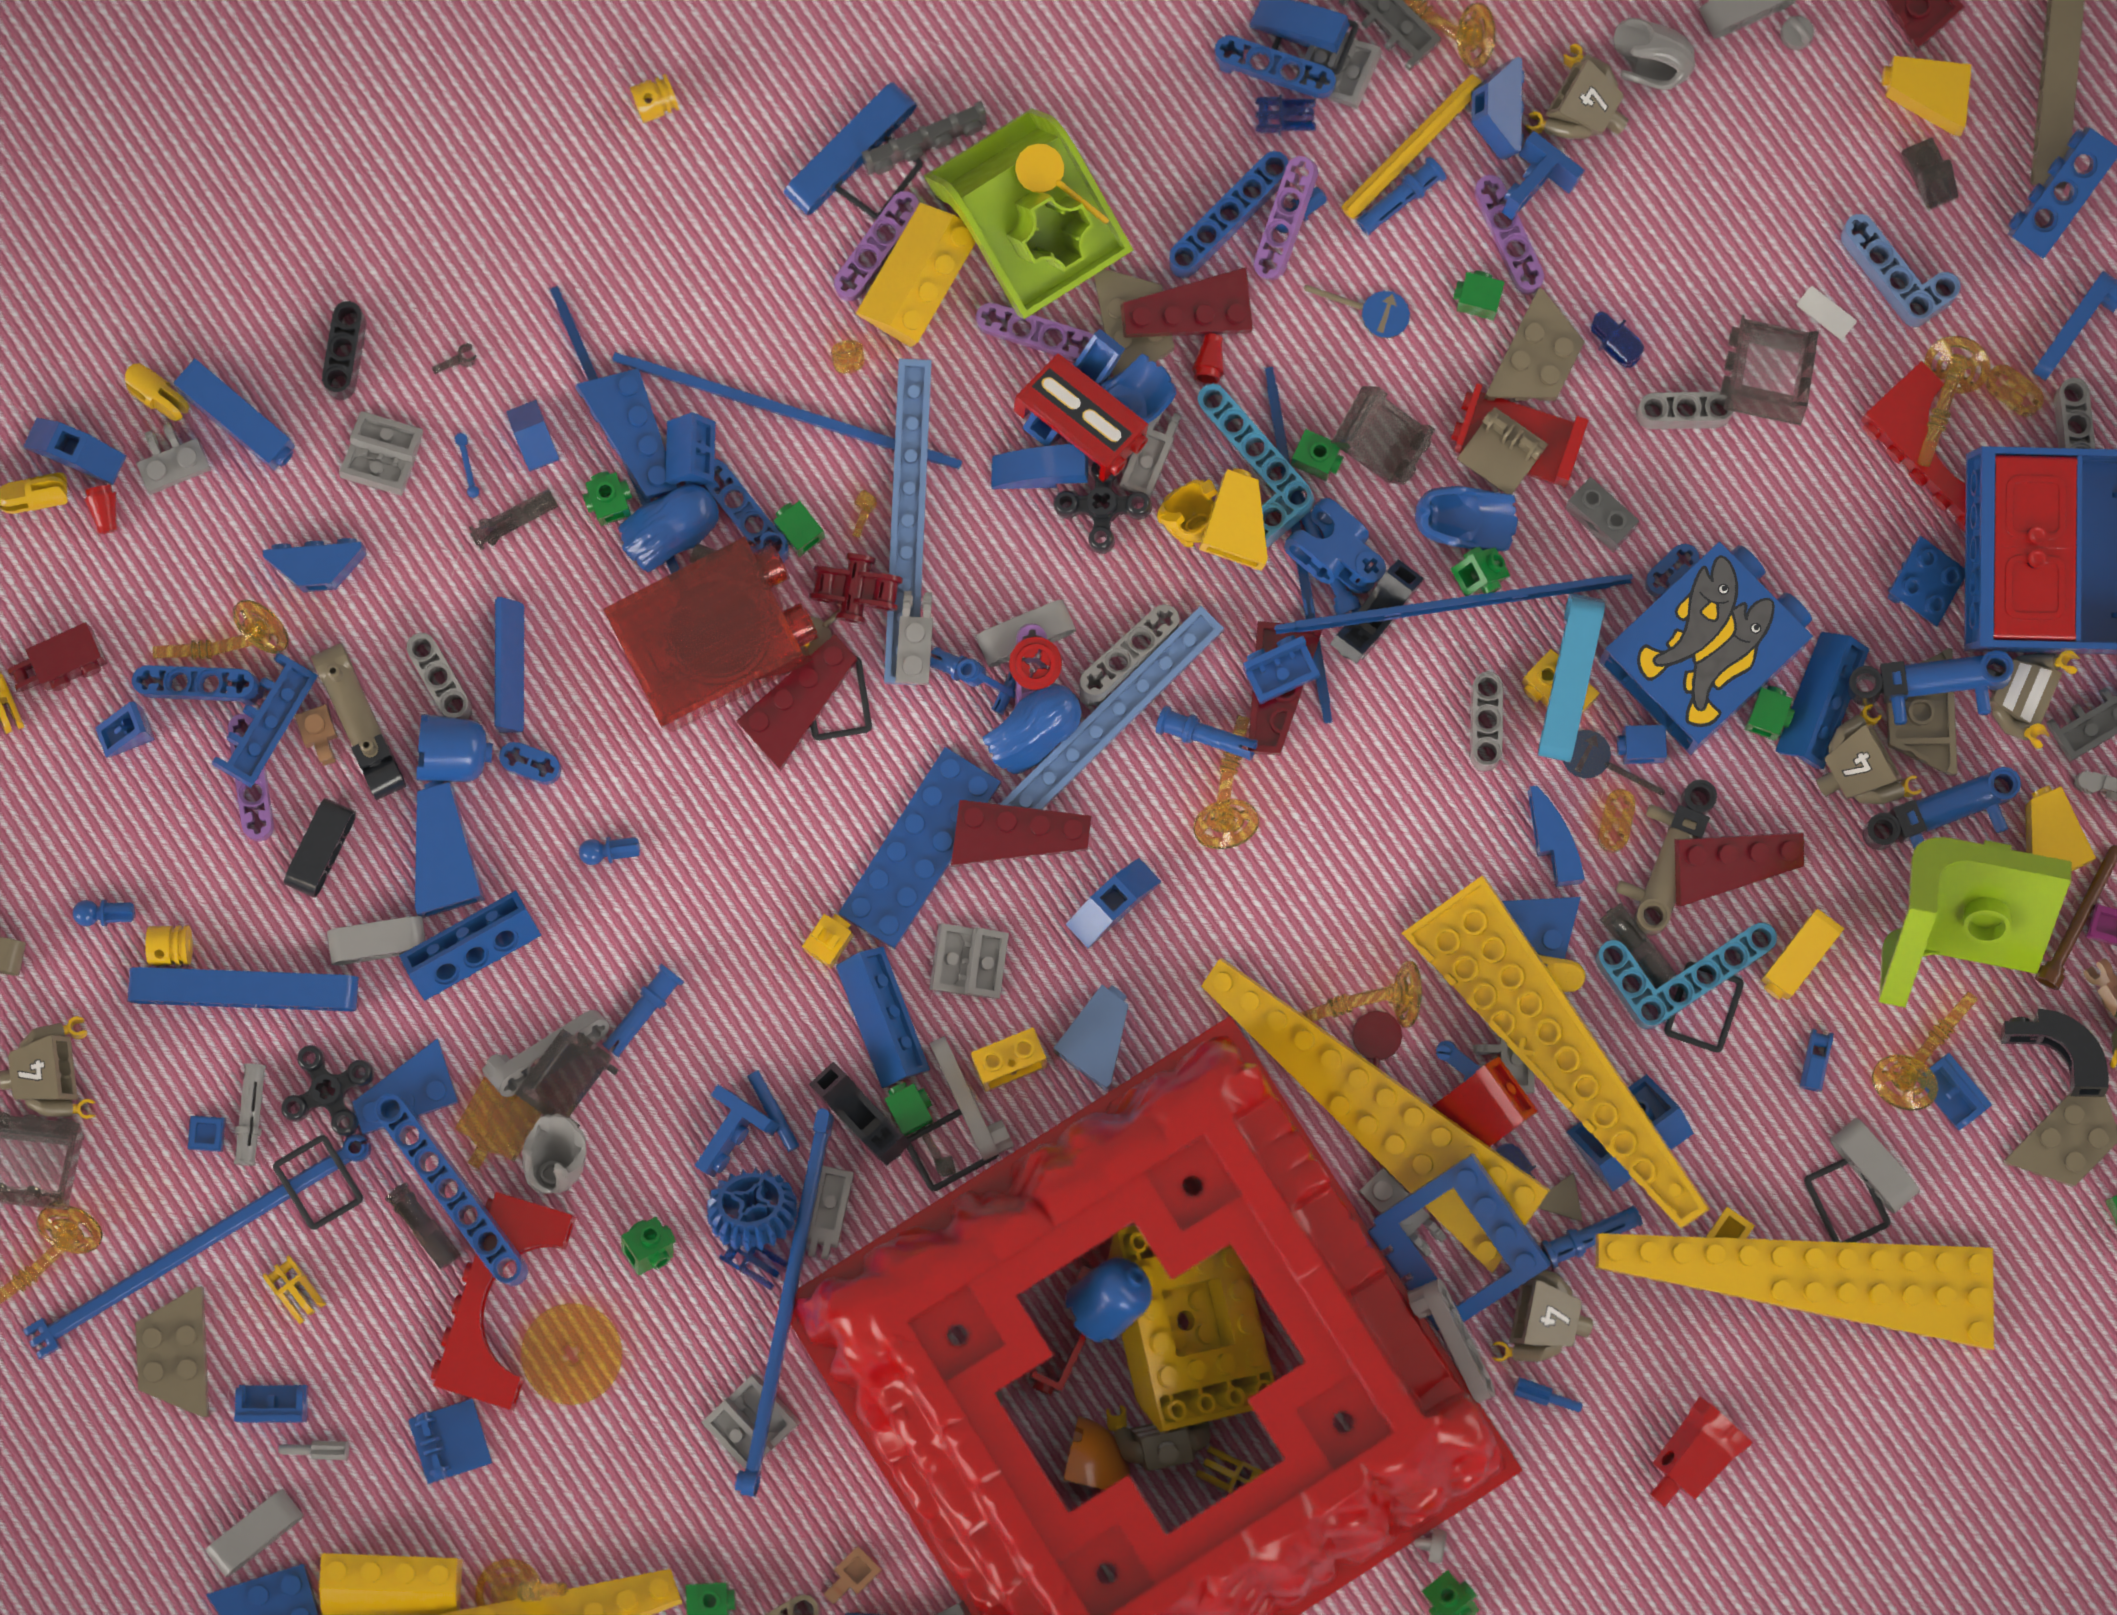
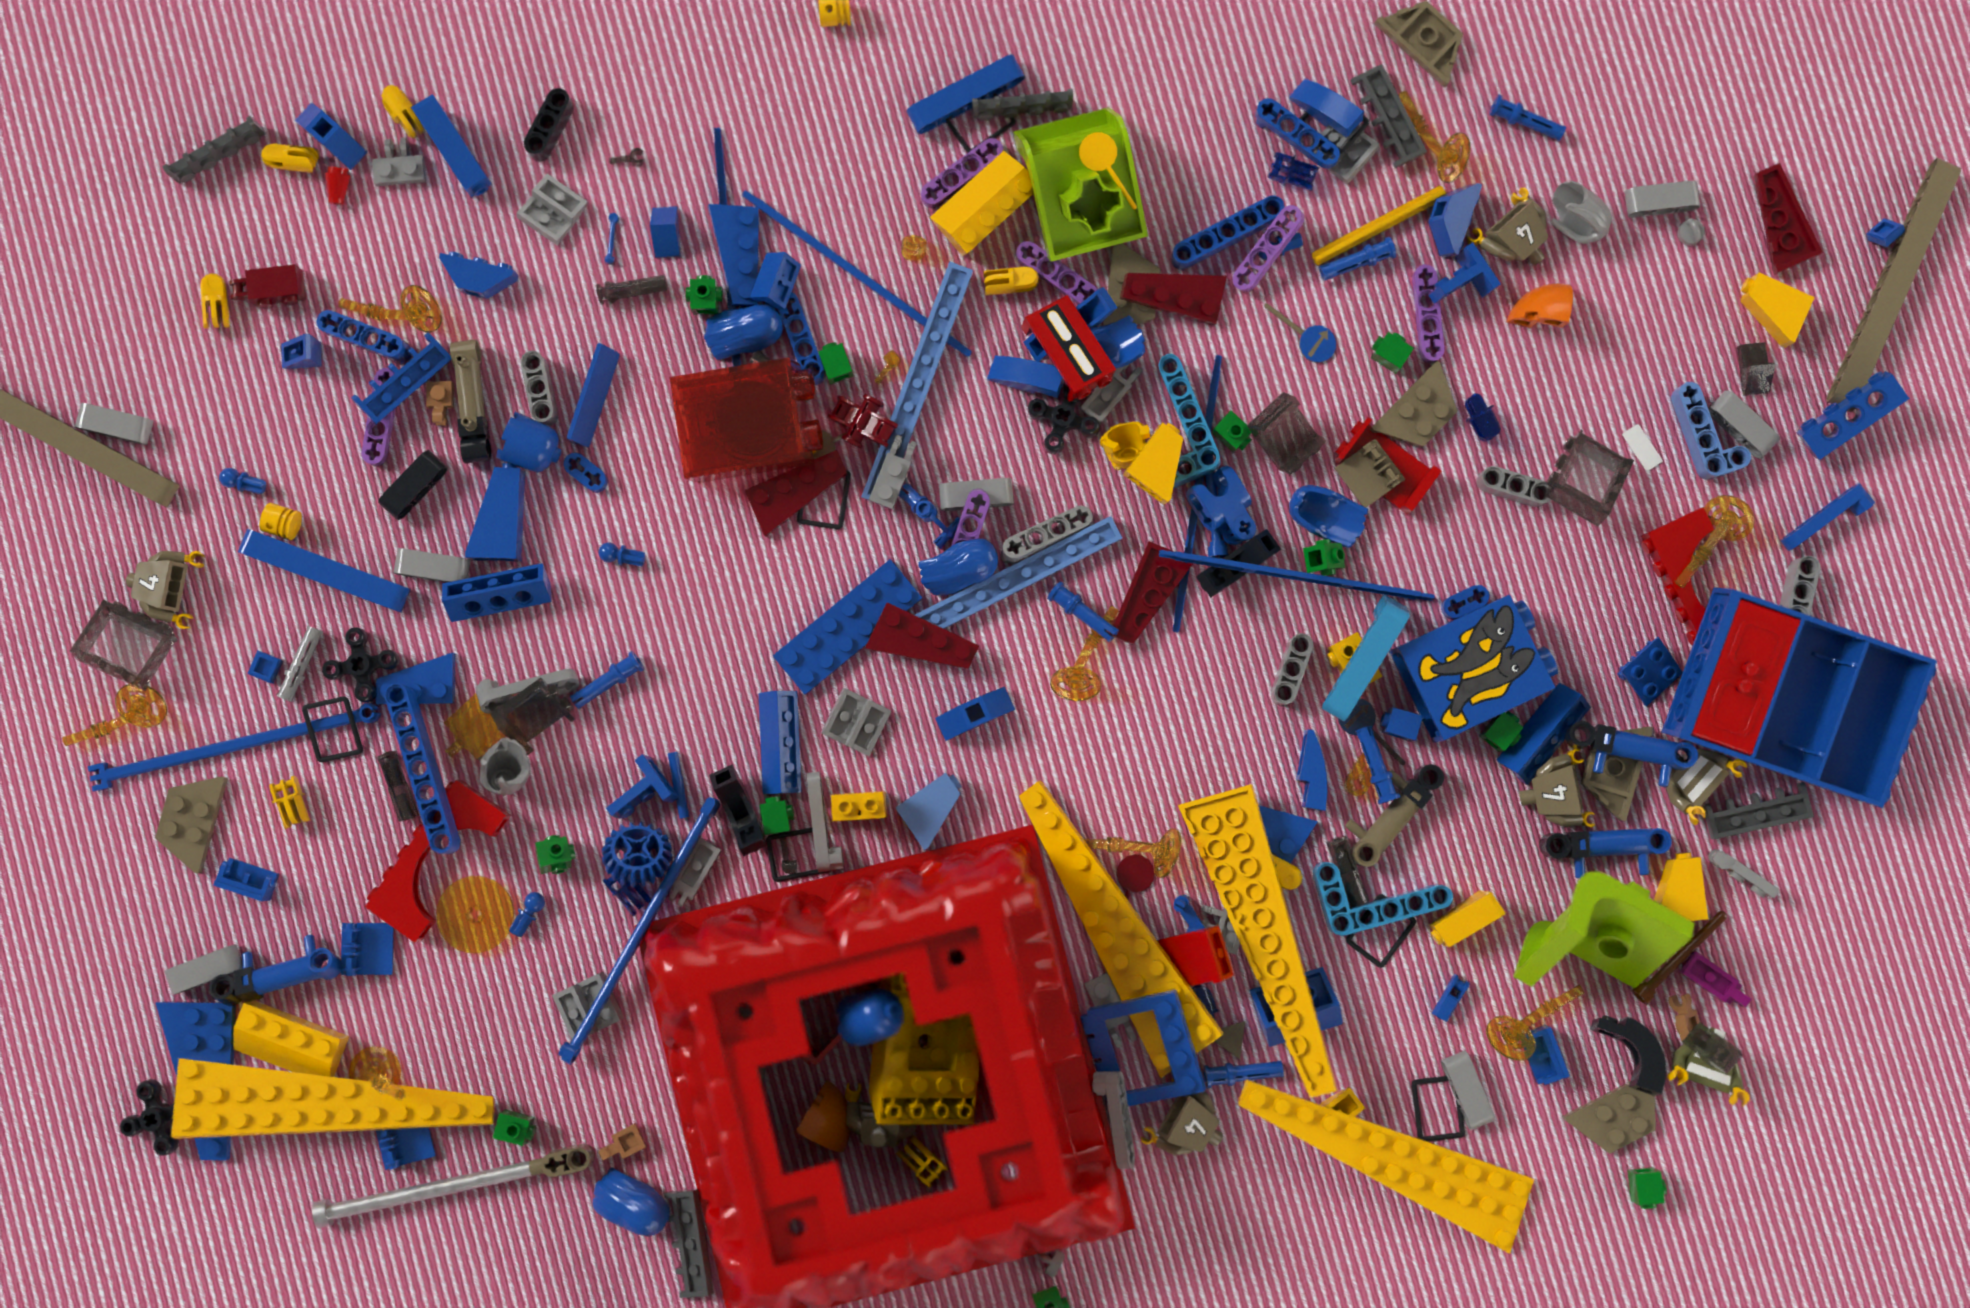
camera: 15 degrees right, 5 degrees up
(318, 1450) = (271, 924): light grey axle -> none
(323, 1527) = (252, 983): none -> blue piece
(640, 1315) = (533, 903): none -> blue axle
(828, 939) = (758, 673): yellow brick -> none
(980, 358) = (1010, 280): none -> yellow arm
(1042, 676) = (976, 531): red gear -> none
(1209, 361) = (1176, 338): red cone -> none
(1280, 668) = (1153, 582): blue bracket -> none
(1543, 1395) = (1168, 1177): blue axle -> none
(1601, 514) = (1427, 544): dark grey brick -> none
(1638, 815) = (1380, 776): none -> blue pin
(1646, 178) = (1544, 304): none -> orange brick
(1697, 1452) = (1266, 1260): red piece -> none
(1729, 862) = (1438, 833): dark red wing -> none
(1939, 245) = (1743, 424): none -> light grey beam
(2019, 384) = (1768, 548): clear yellow beam -> none

